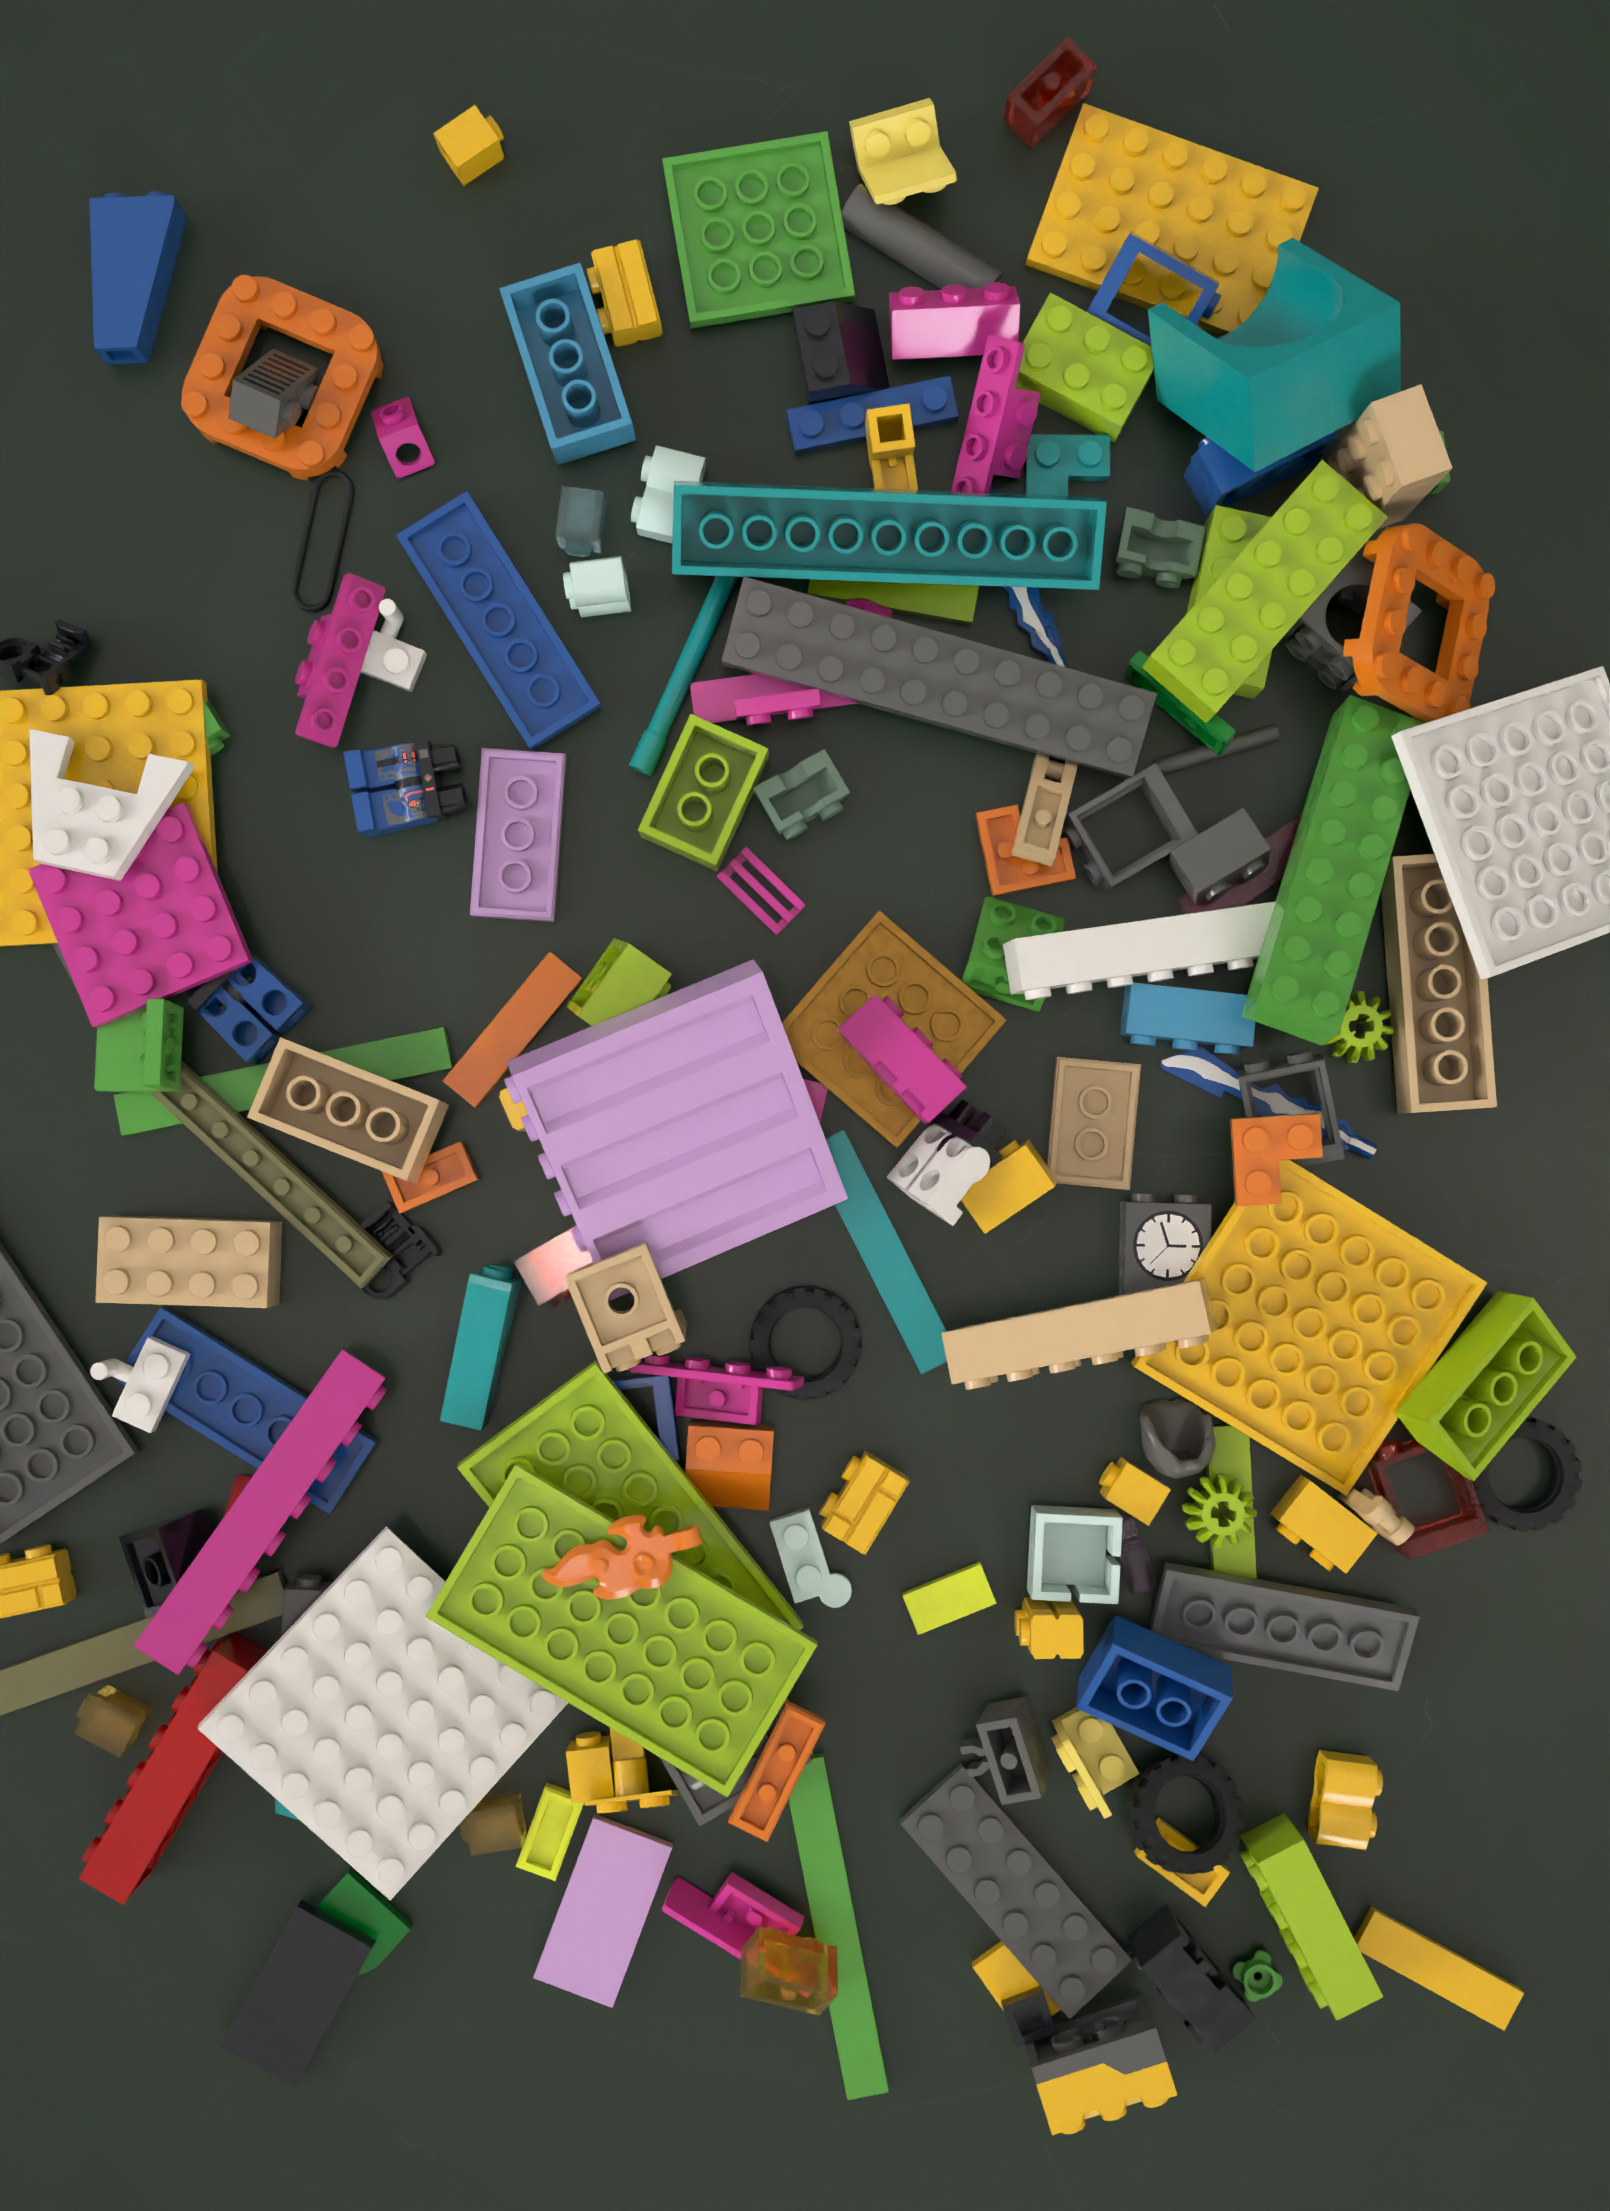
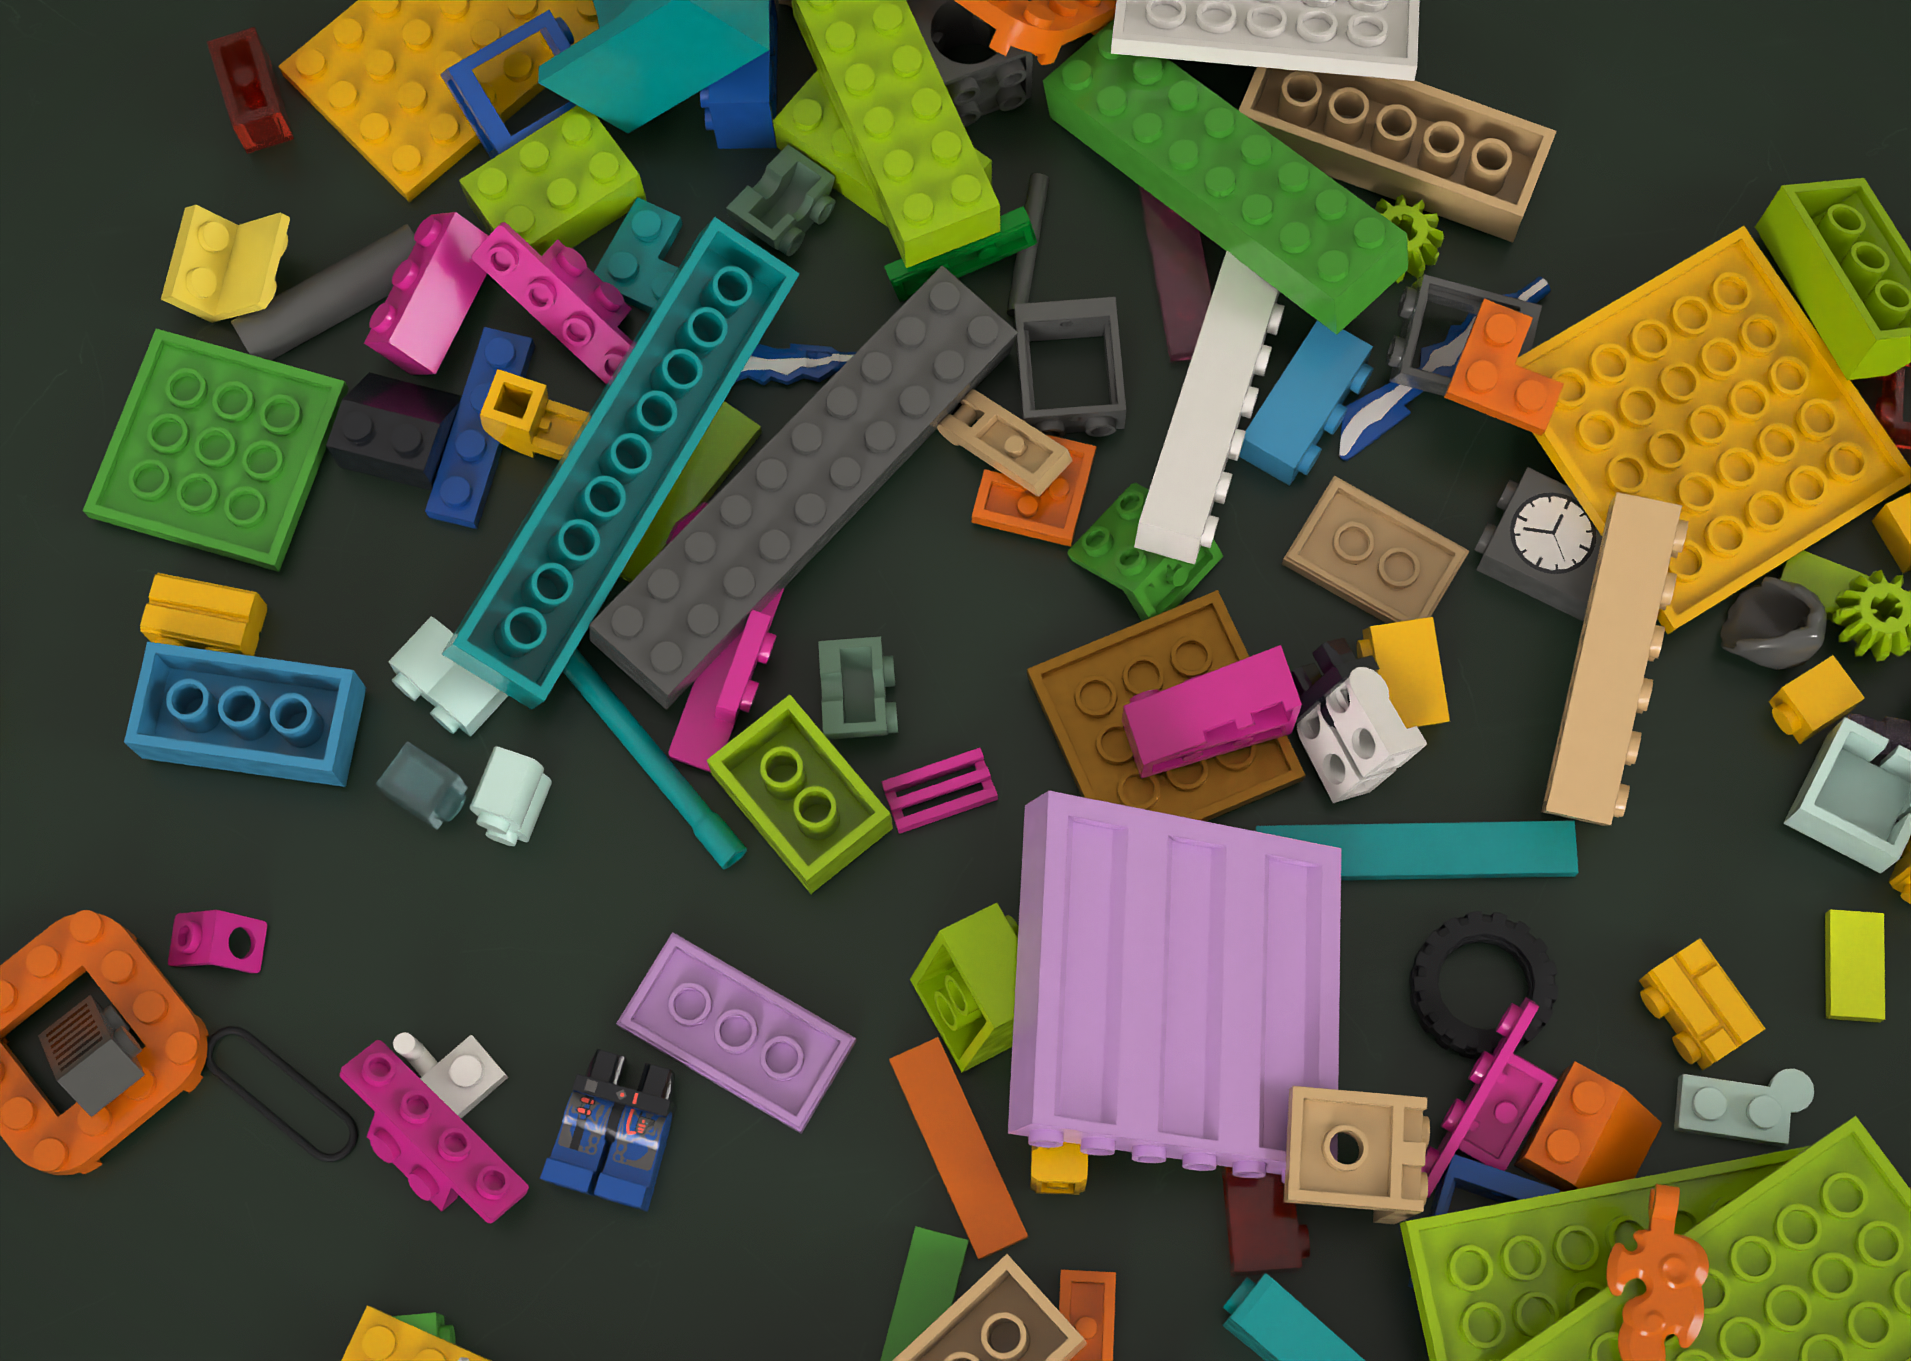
camera: 55 degrees left, 15 degrees down
(499, 620) = (483, 933): blue plate -> none
(1220, 857) = (1149, 287): dark grey brick -> none

